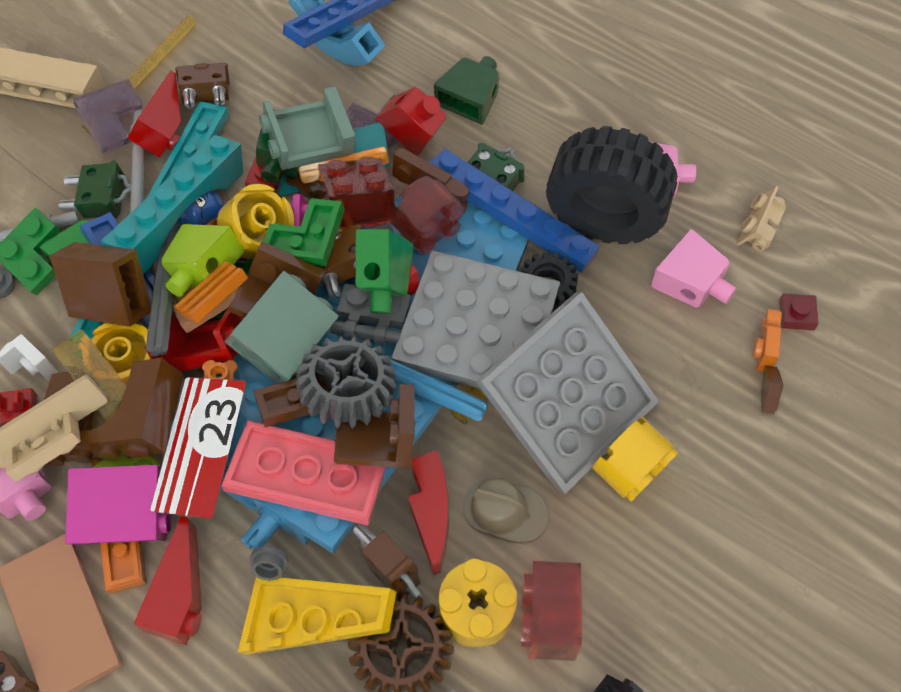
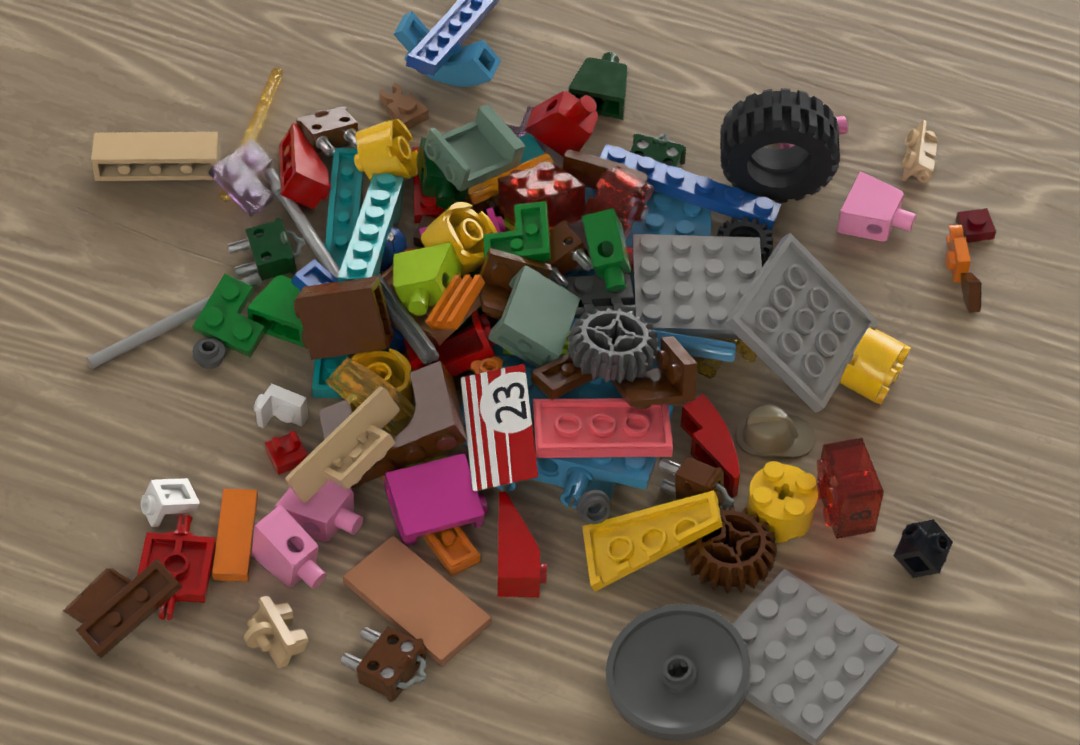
camera: 20 degrees left, 10 degrees down
(234, 113) = (386, 150): none -> yellow brick
(285, 75) = (402, 107): none -> medium nougat plate

